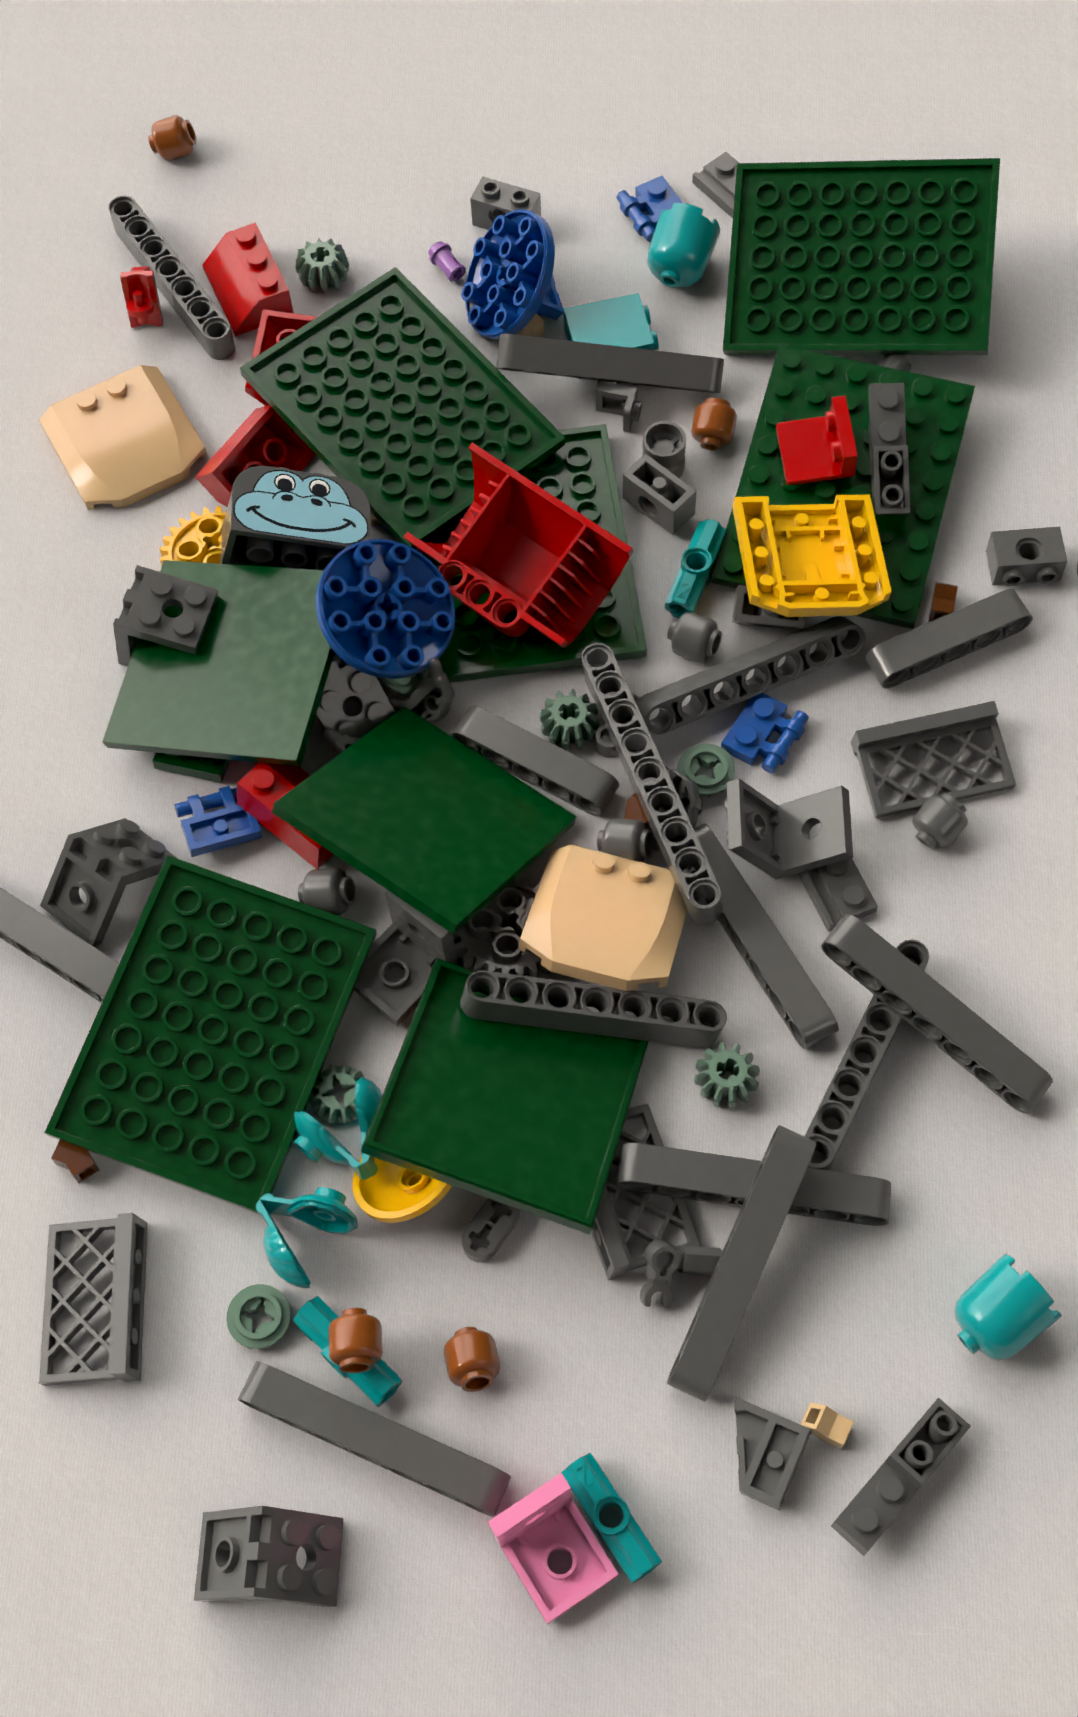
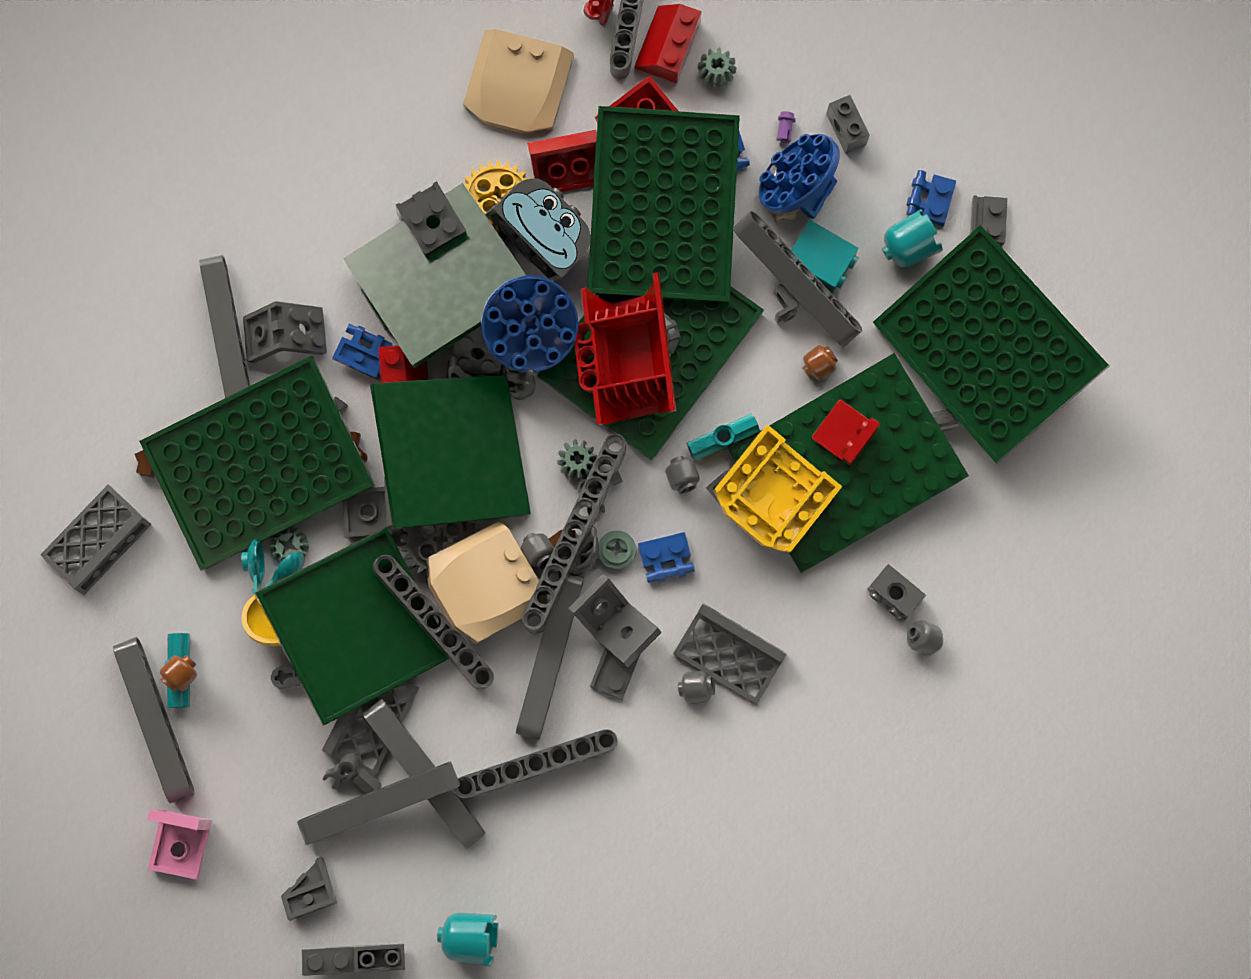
camera: 40 degrees right, 15 degrees up
(249, 1301) = (146, 615): sand green gear -> none
(264, 1553) = (55, 721): dark grey bracket -> none
(322, 1211) = (189, 599): teal animal -> none
(327, 890) = (369, 440): dark grey head -> none
(471, 1359) = (226, 727): dark orange head -> none
(536, 760) = (539, 465): dark grey beam -> none
(627, 1540) = (212, 869): teal piece -> none
(659, 494) = (746, 378): dark grey brick -> none
(666, 445) = (775, 355): dark grey wheel -> none
(716, 1065) = (462, 717): sand green gear -> none
(765, 677) = (683, 521): dark grey beam -> none
(827, 1424) = (346, 906): tan piece -> none
(888, 449) = (878, 471): dark grey slope -> none
(937, 1014) = (584, 779): dark grey beam -> none
(942, 600) = (828, 574): reddish brown piece -> none
(948, 638) = (808, 597): dark grey beam -> none

